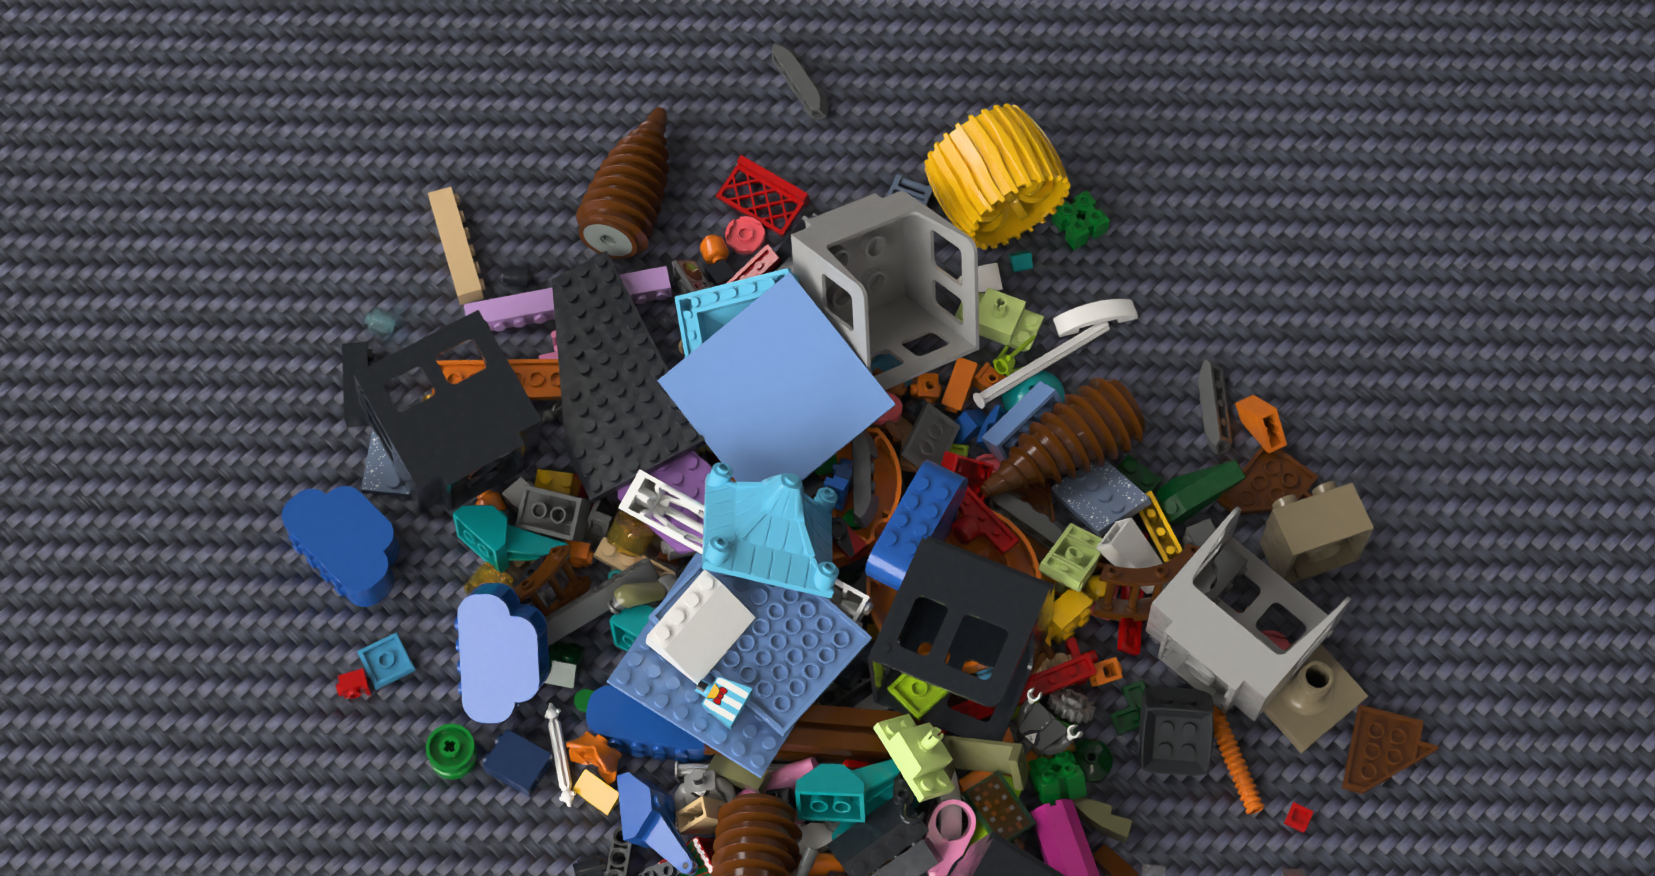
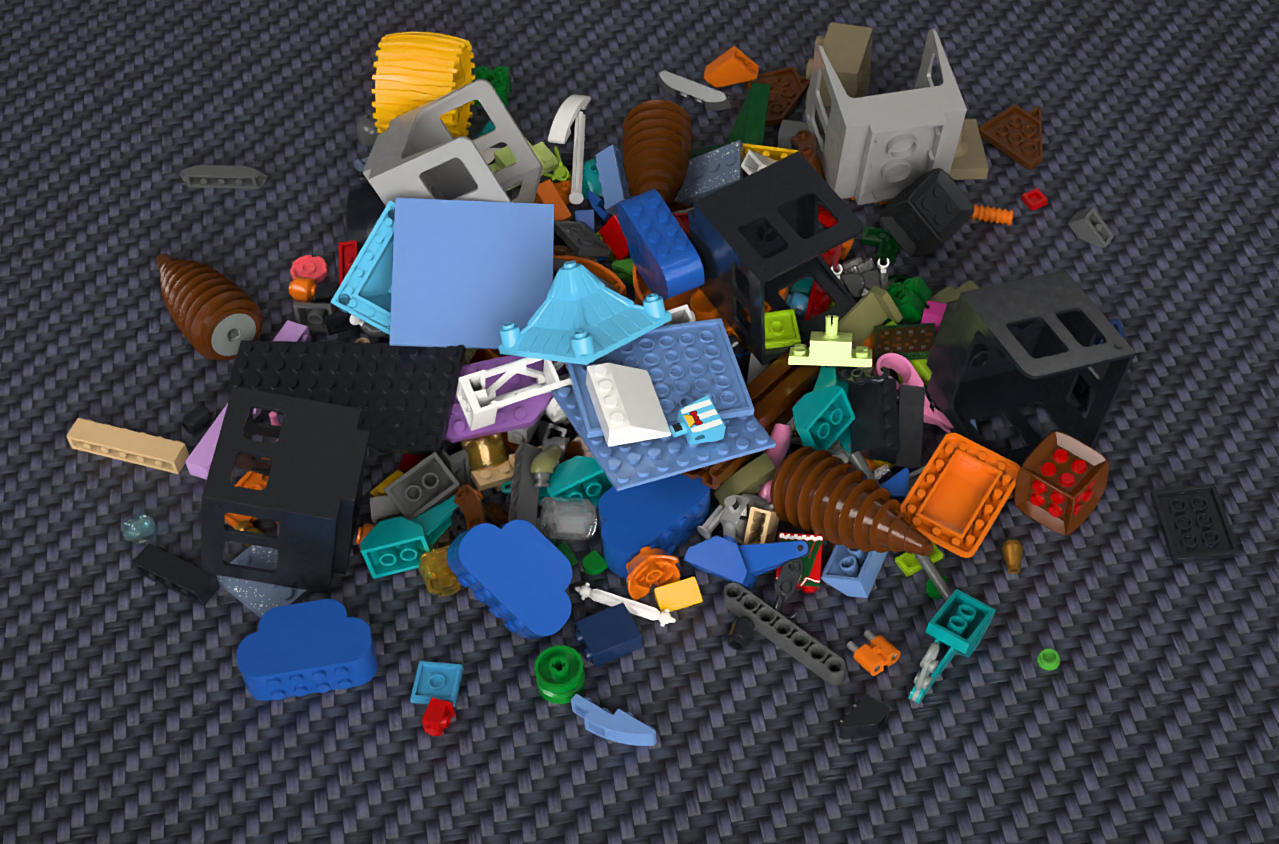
camera: 50 degrees left, 15 degrees down
(435, 831) = (620, 727): none -> medium blue slope
(593, 655) = (567, 518): none -> clear cylinder
(768, 180) = (285, 231): red fence -> none

